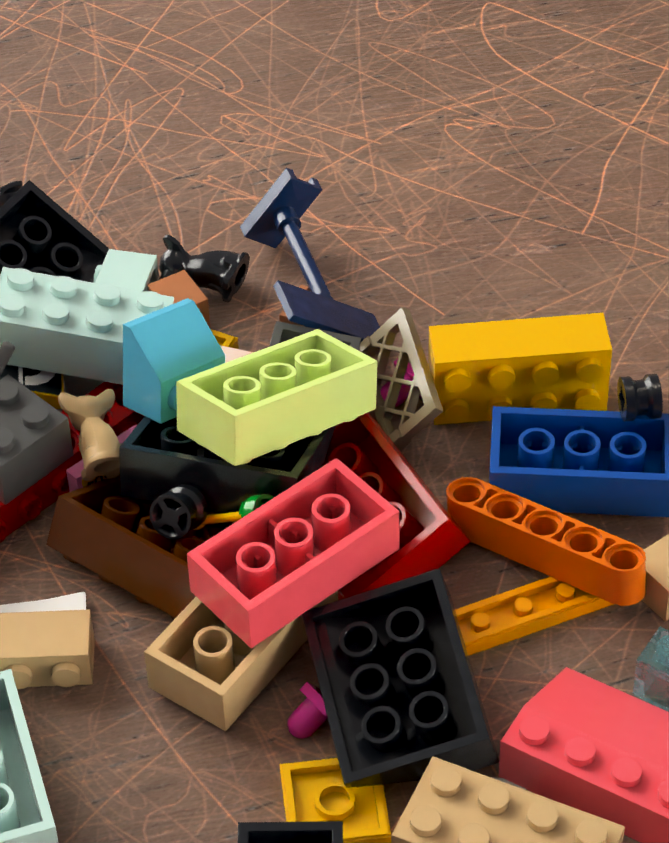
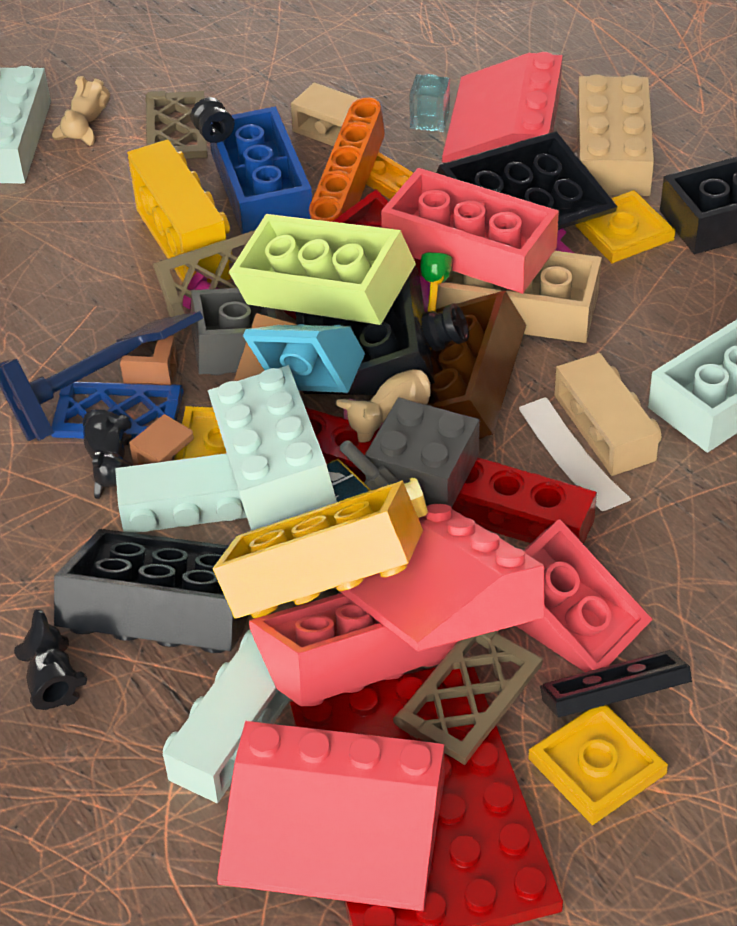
camera: 110 degrees left, 0 degrees up
(248, 330) = (68, 407): none -> blue window

